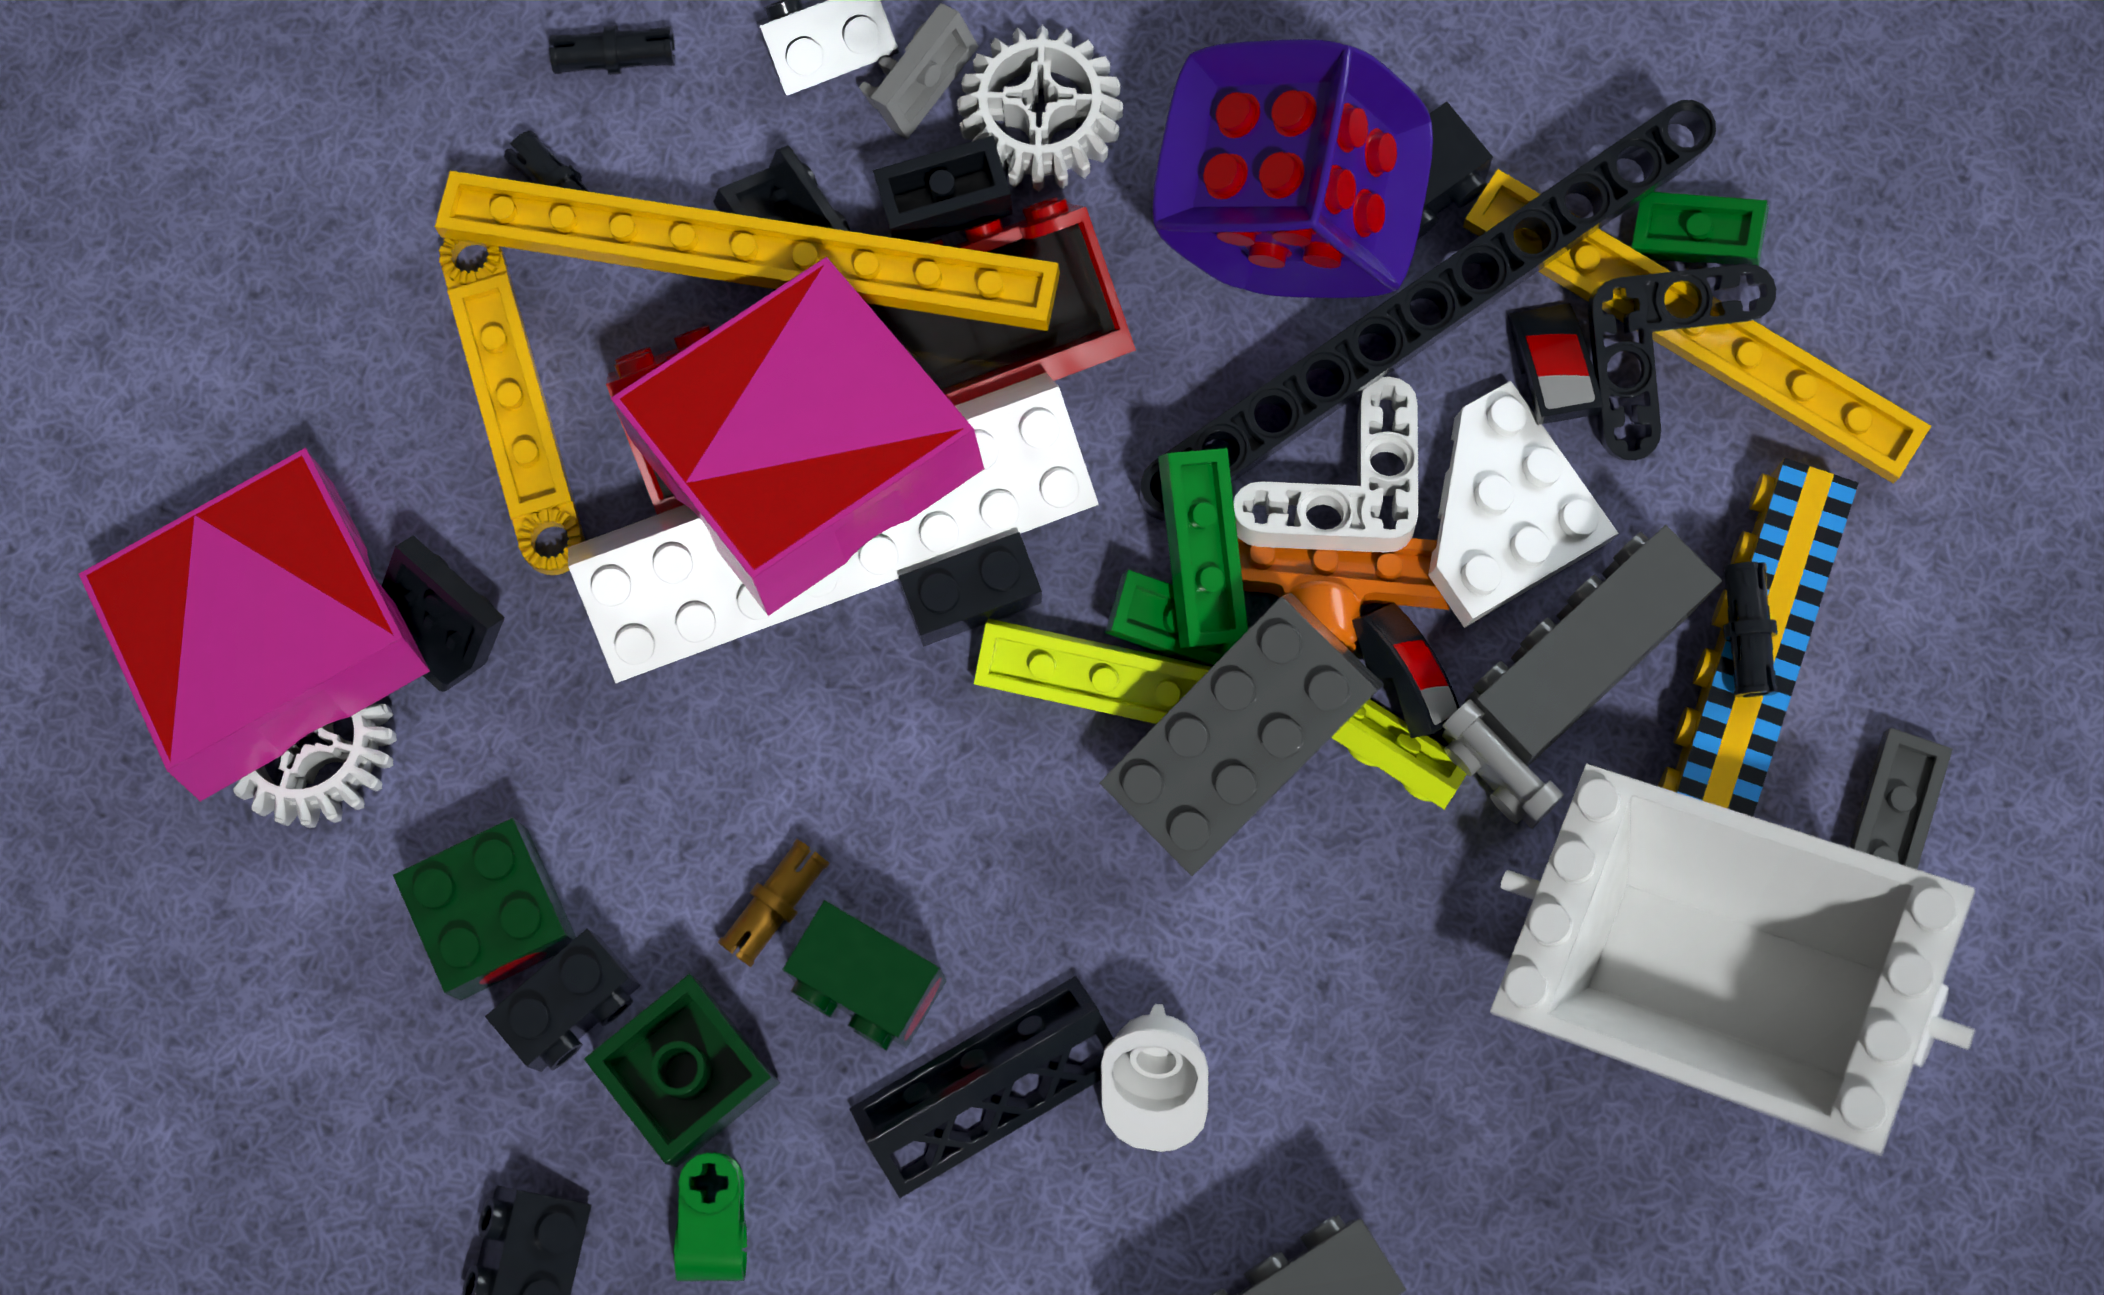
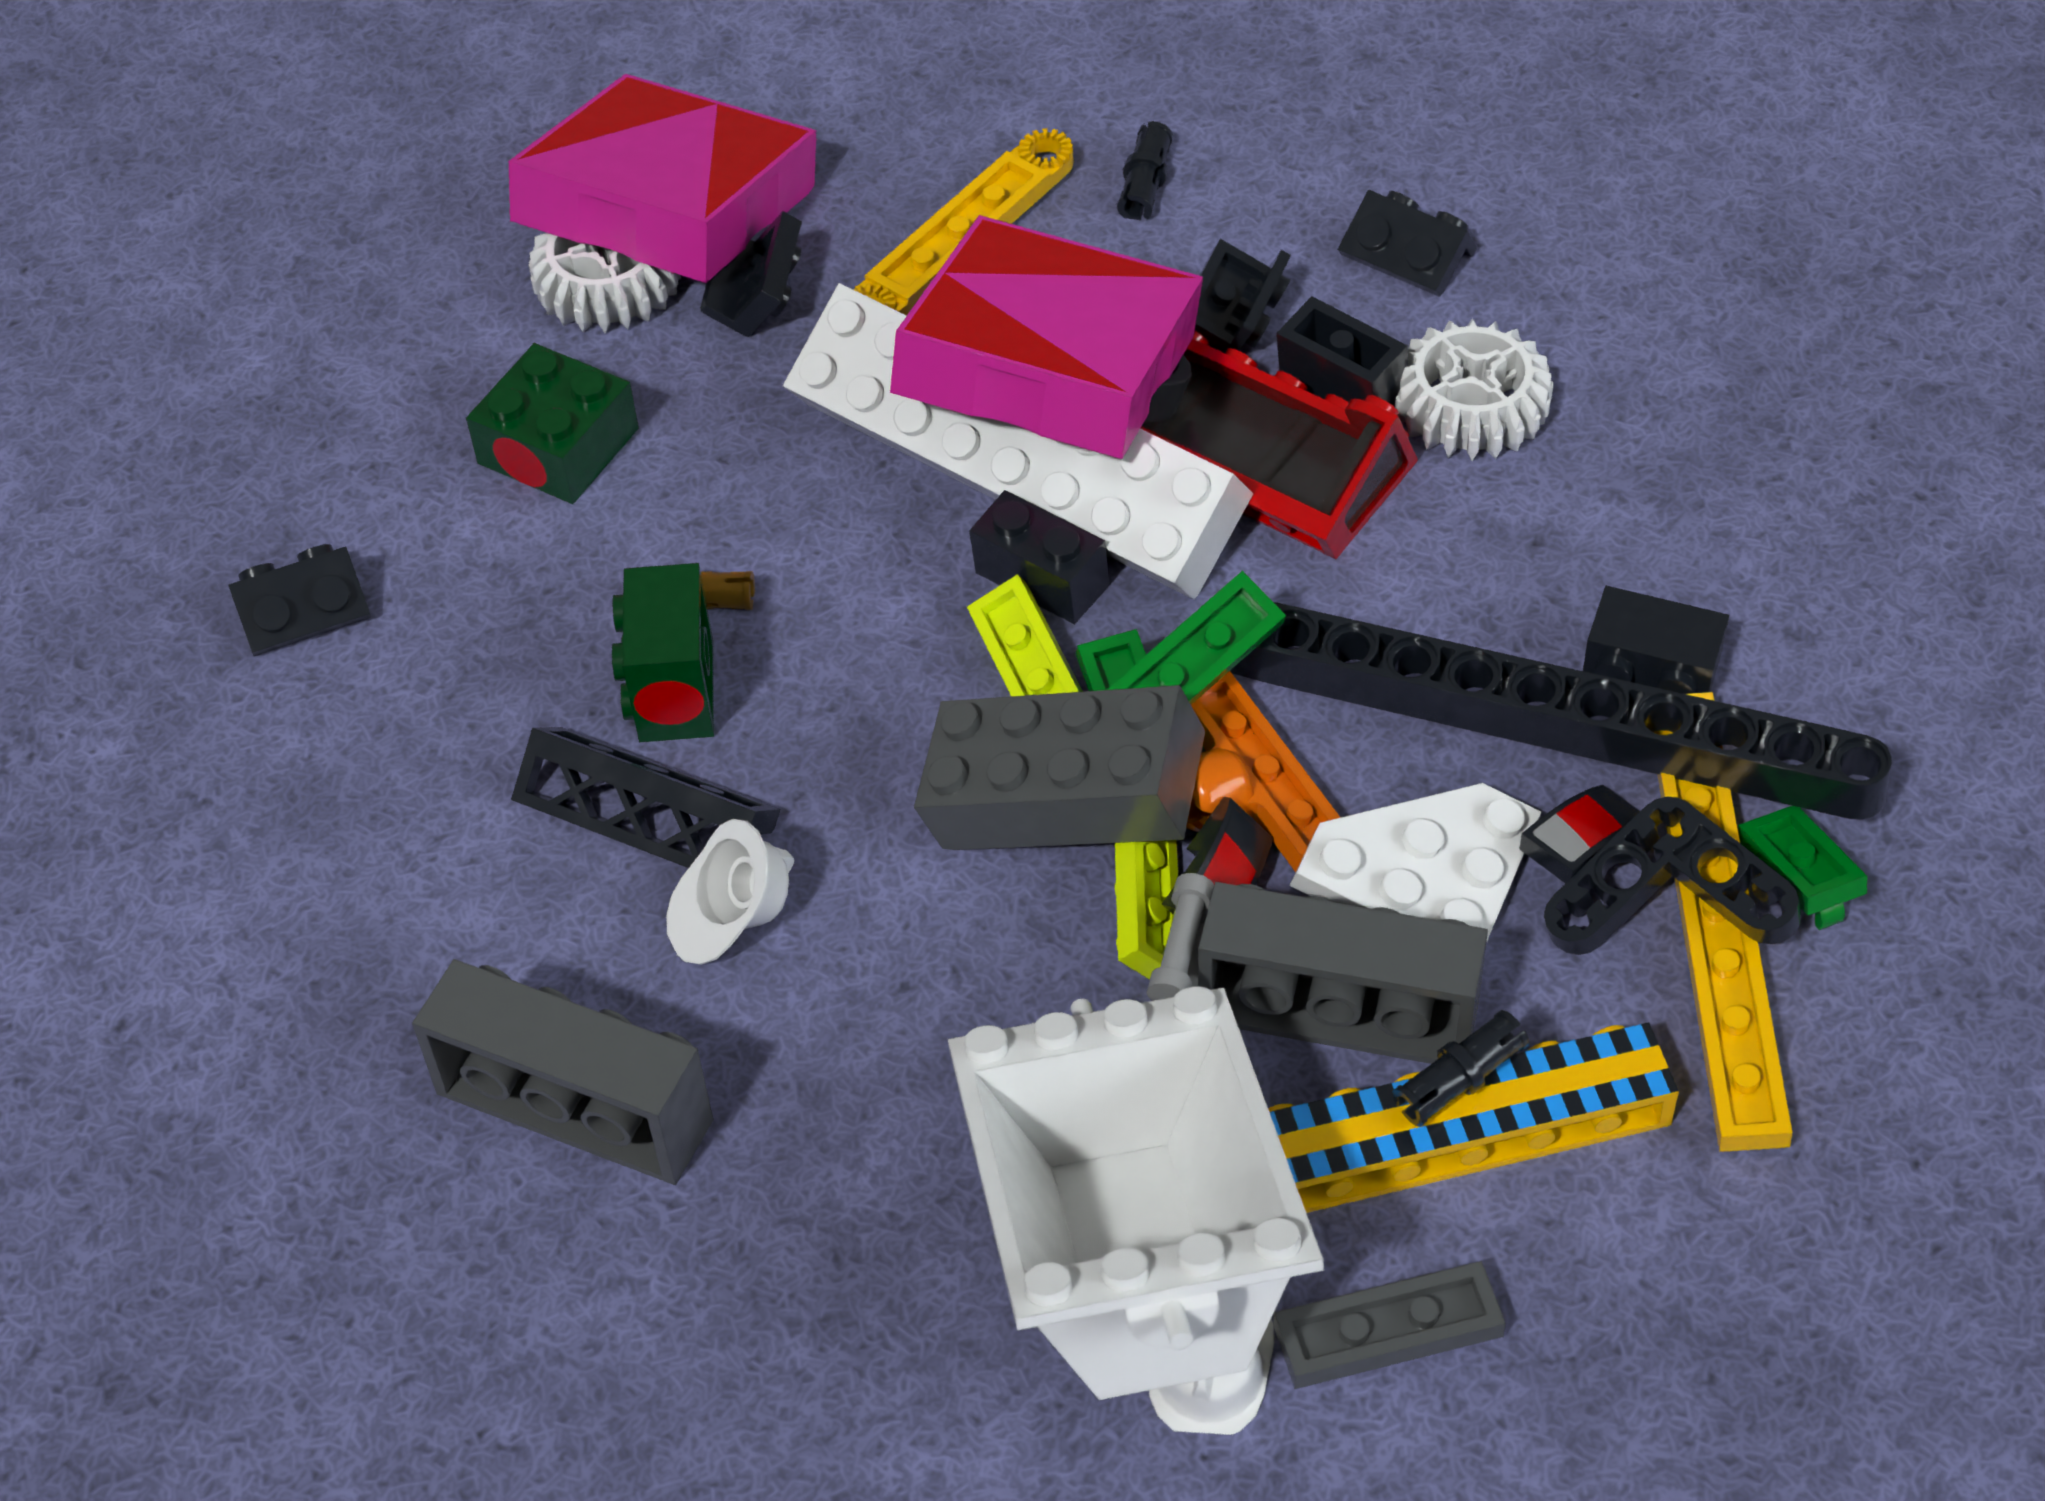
camera: 55 degrees right, 25 degrees down
(564, 1002) = (515, 502): black brick -> none
(612, 50) = (1277, 141): black pin -> none
(681, 1071) = (510, 594): dark green brick -> none
(708, 1232) = (405, 686): green piece -> none
(746, 249) = (1160, 234): yellow plate -> none
(923, 72) = (1412, 304): light grey plate -> none
(1293, 169) = (1553, 516): dark purple piece -> none
(1358, 504) = (1333, 757): white beam -> none

